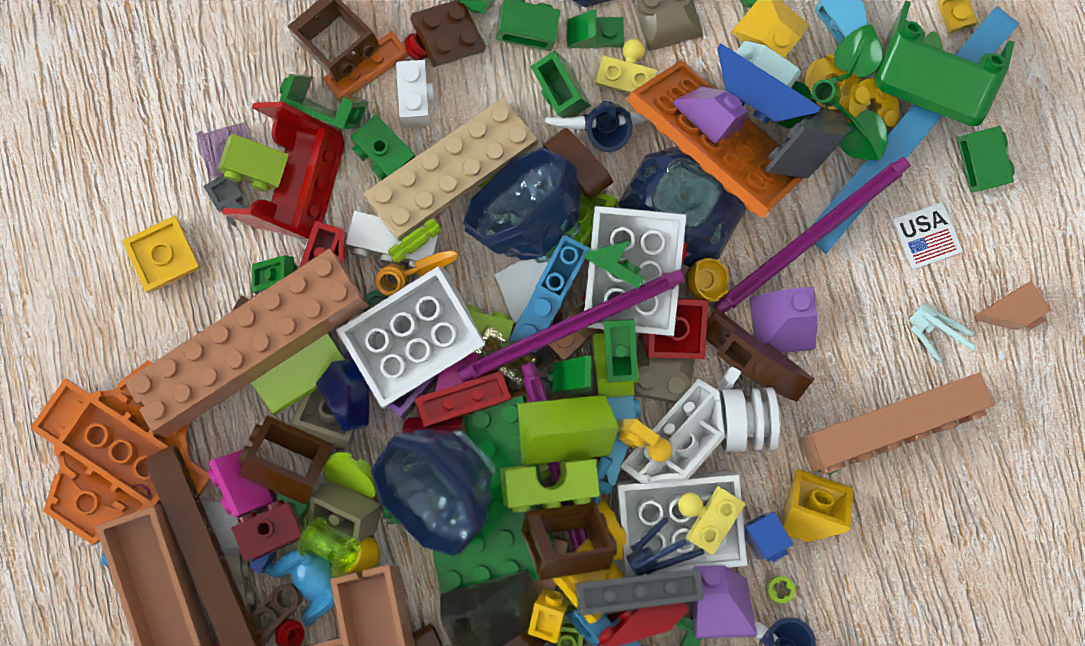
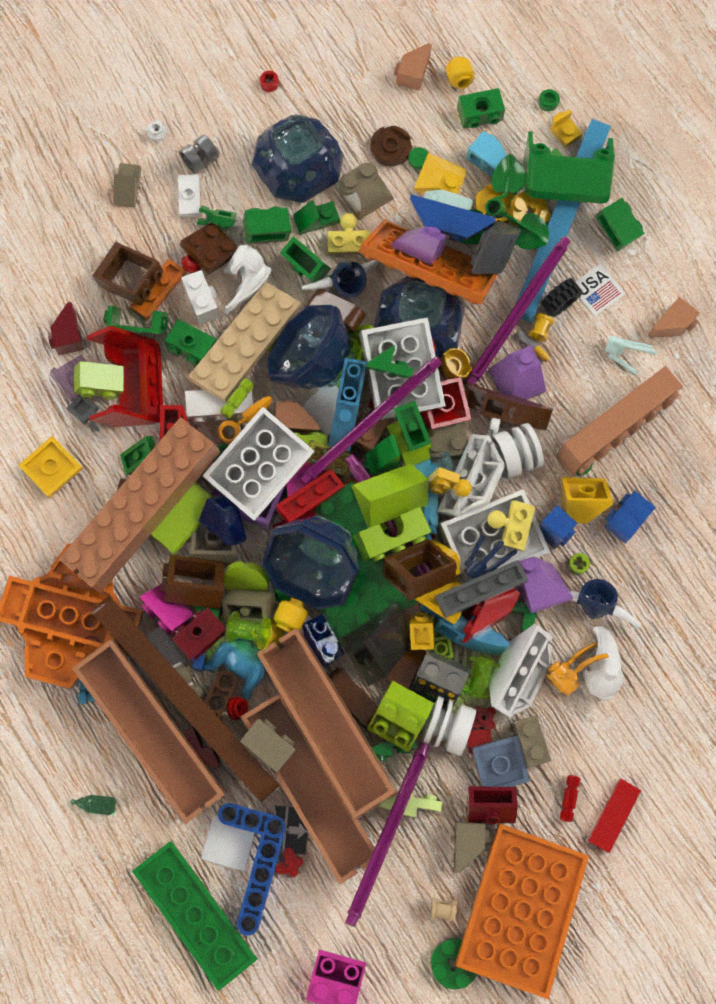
camera: 25 degrees left, 5 degrees down
(235, 87) = (66, 332): none -> dark red slope
(388, 543) = (290, 615): none -> yellow head
(420, 586) = (322, 641): none -> clear blue slope
(479, 287) = (295, 417): none -> nougat slope
(490, 85) = (253, 274): none -> white hair
(648, 410) = (444, 461): none -> clear light blue plate
(818, 283) = (525, 339): none -> piece
(836, 264) = (541, 327): none -> yellow bush
(866, 550) = (629, 517): none -> blue brick
(876, 234) = (562, 297): none -> black tyre

